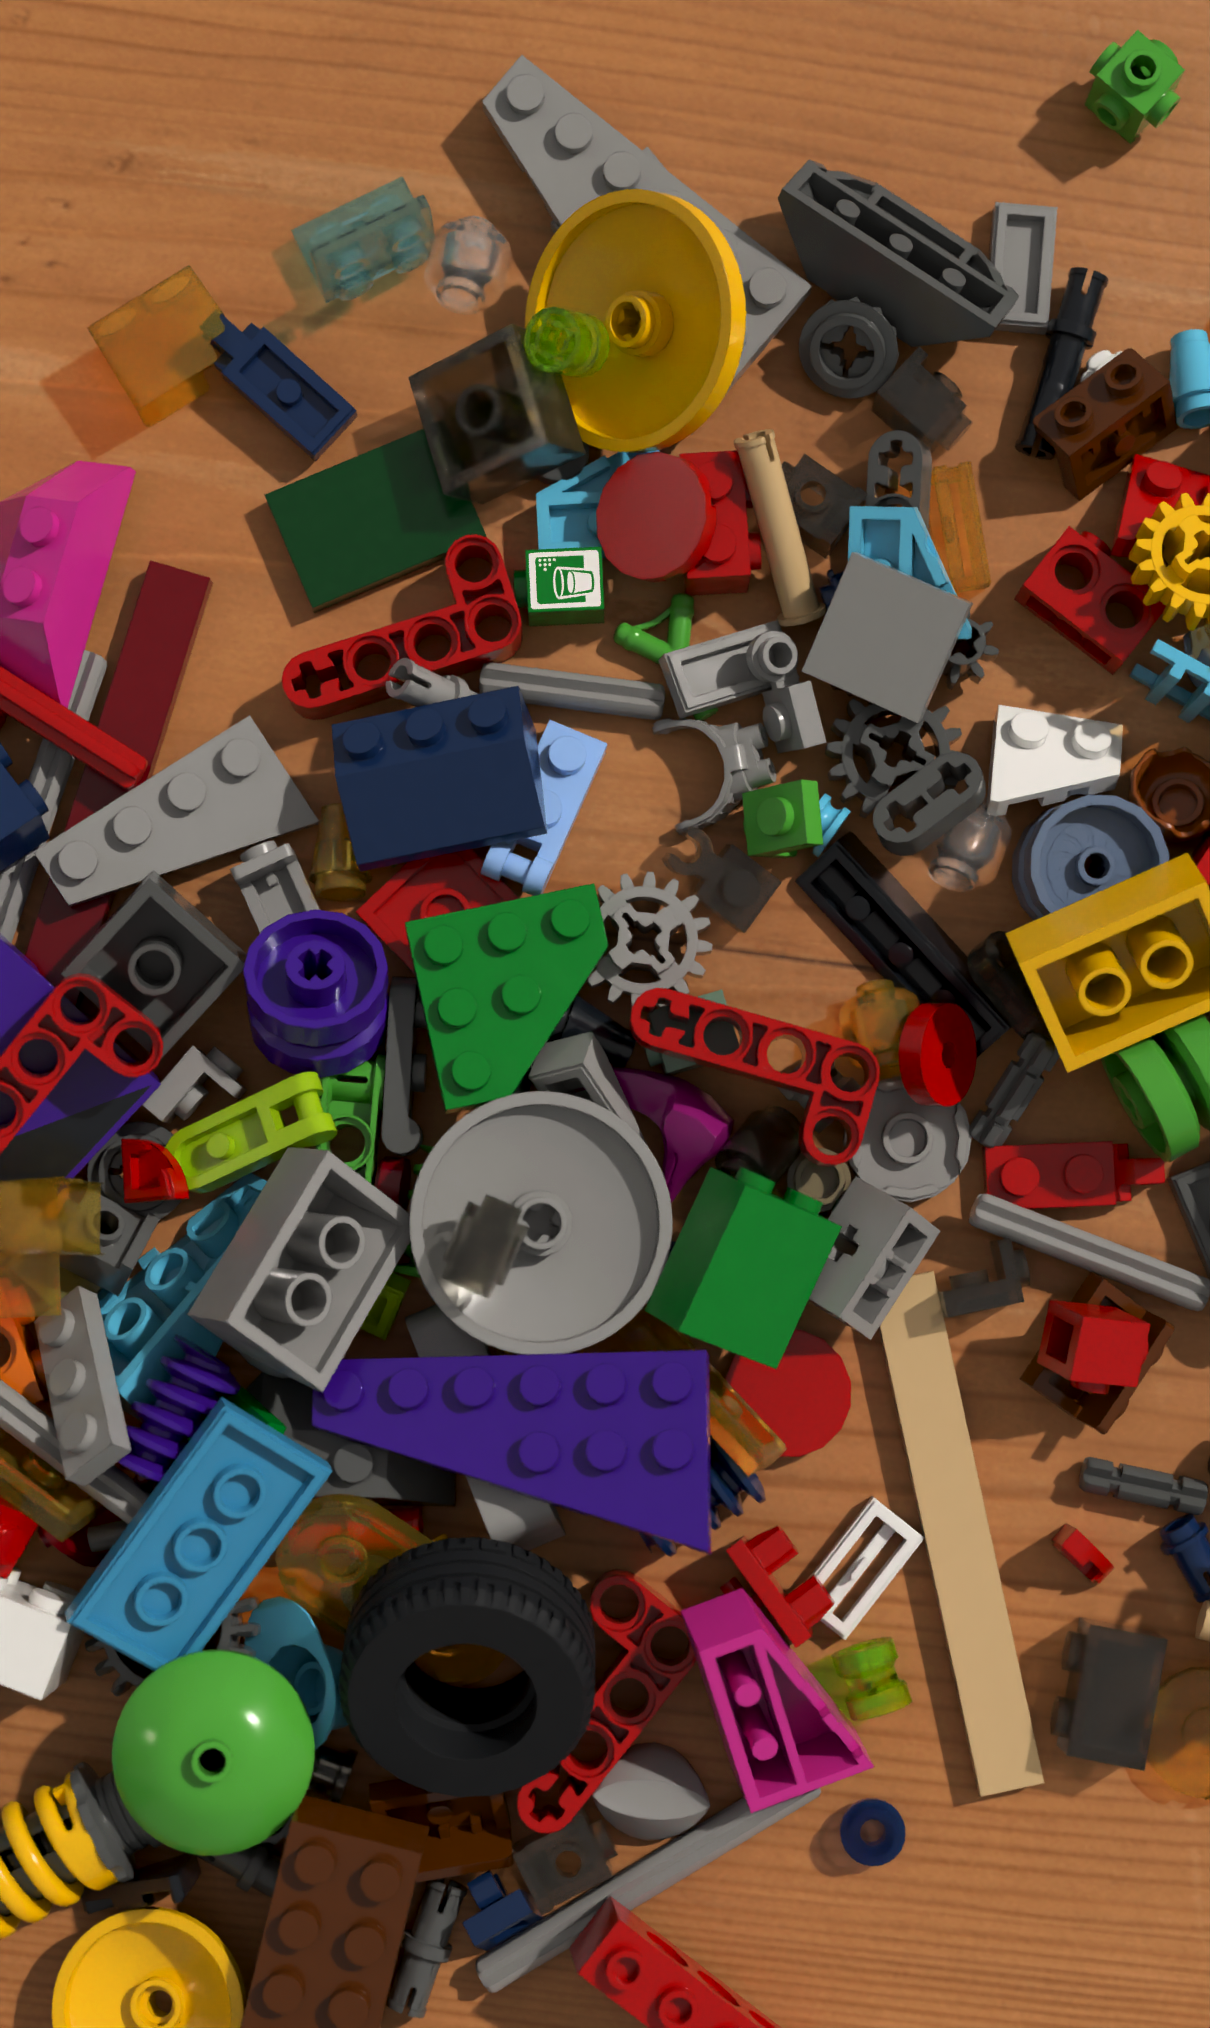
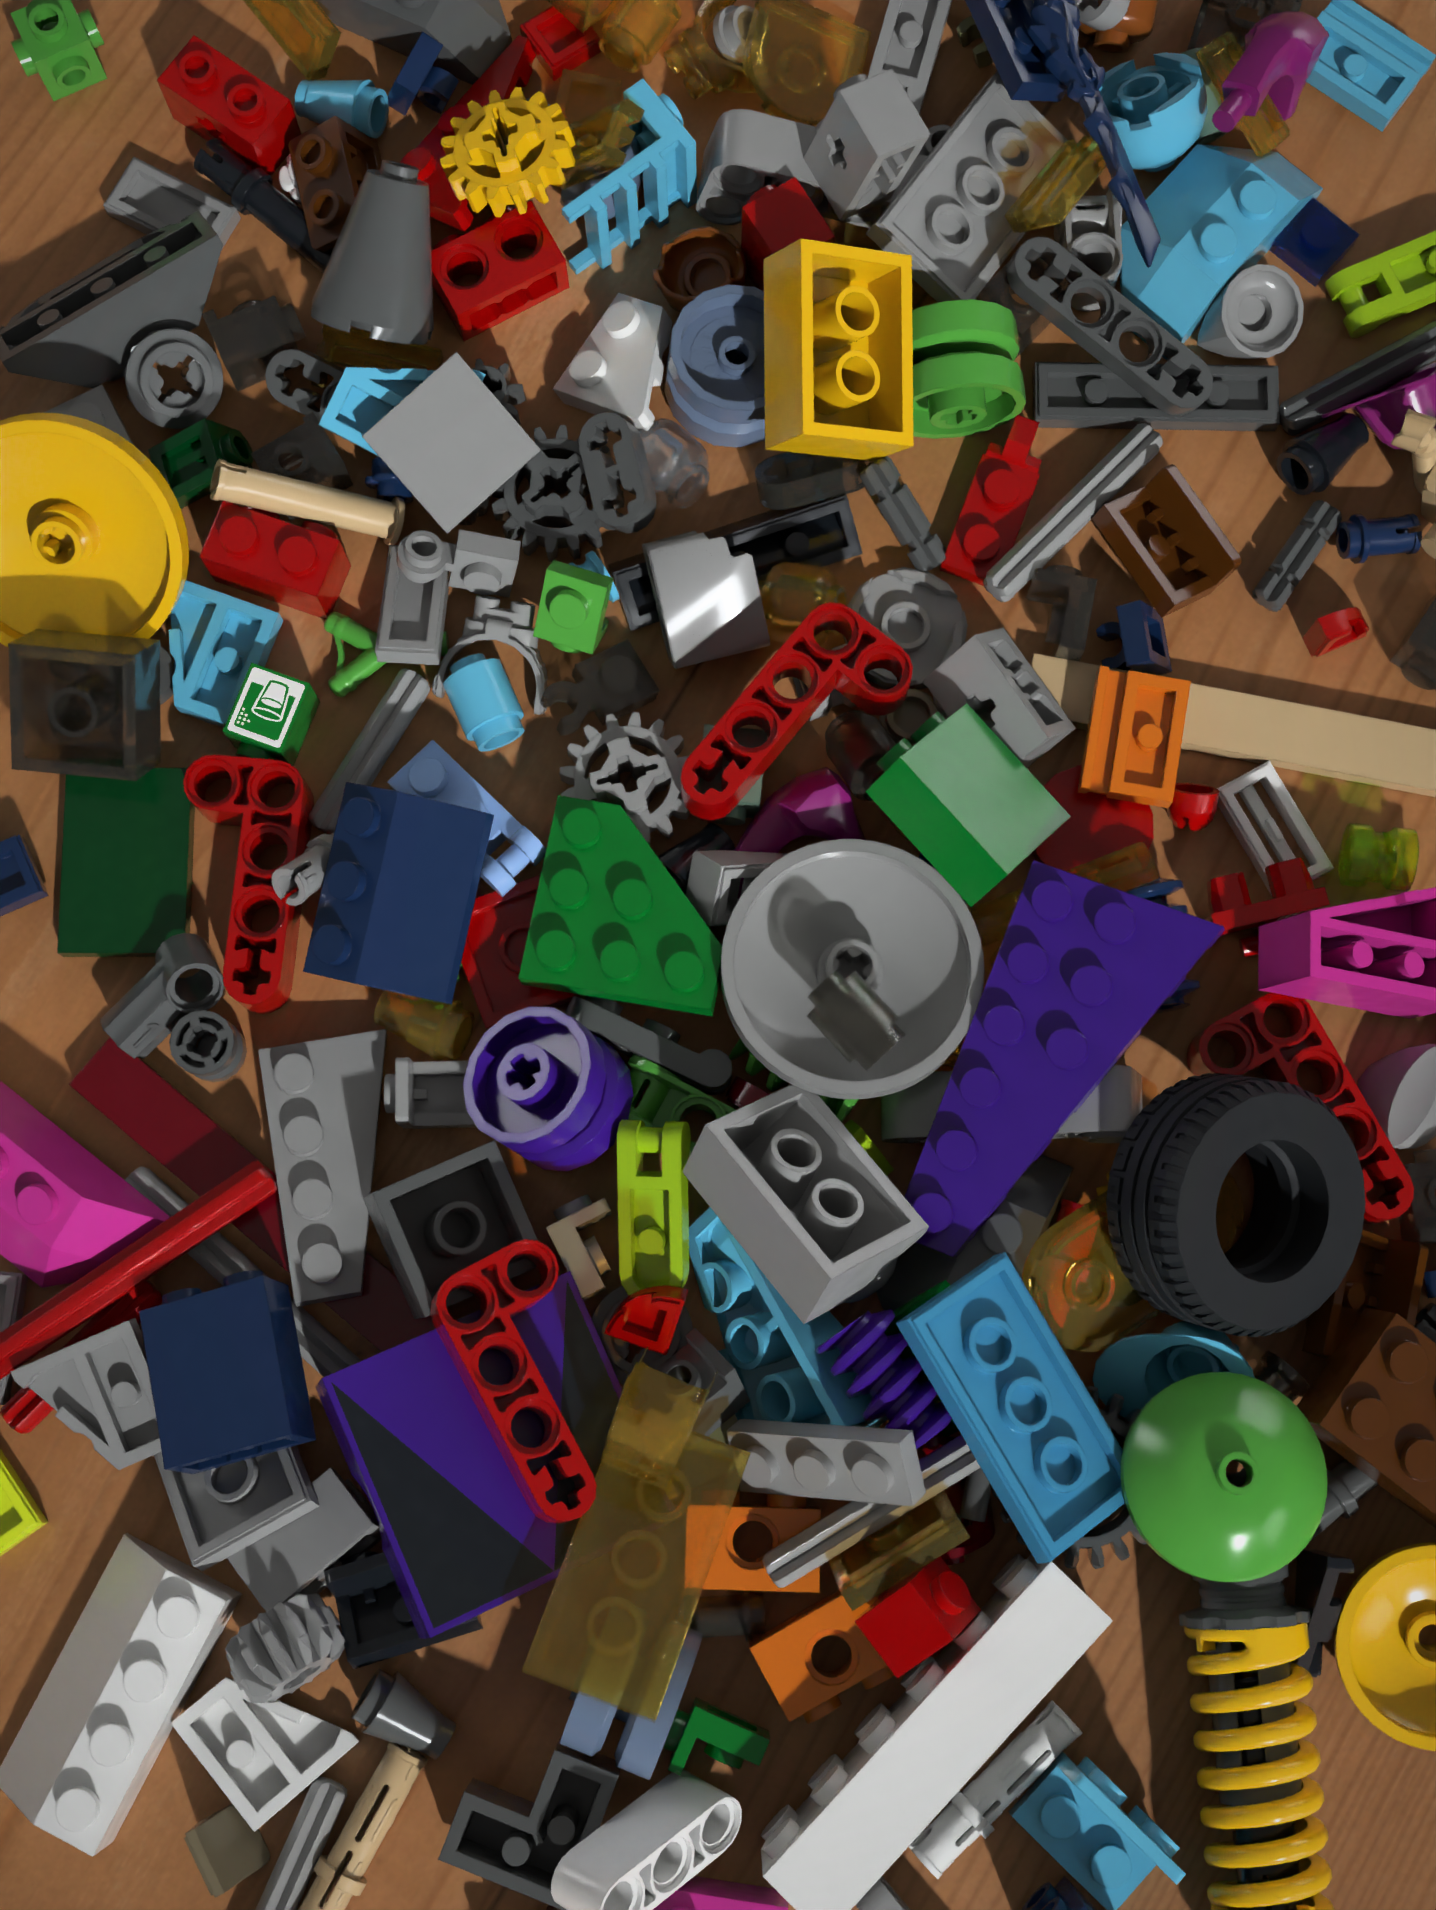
camera: 65 degrees left, 5 degrees down
(243, 678) = (215, 1056): none -> dark grey wheel
(276, 617) = (162, 998): none -> dark grey piece
(580, 348) = (59, 596): clear neon green wheel -> none
(656, 517) = (247, 599): red tile -> none
(662, 775) = (484, 702): none -> medium azure brick
(781, 402) = (191, 455): none -> dark green bracket
(843, 936) = (704, 598): none -> light grey piece
(849, 1480) = (1193, 805): none -> red hinge
(886, 1398) = (1134, 736): none -> orange plate
(937, 1054) = (844, 561): red piece -> none
(988, 1369) = (1142, 639): none -> dark blue tile
(1036, 493) = (382, 261): none -> dark grey cone
(1093, 1345) = (1162, 533): red brick -> none
(1143, 276) = (229, 104): none -> red brick

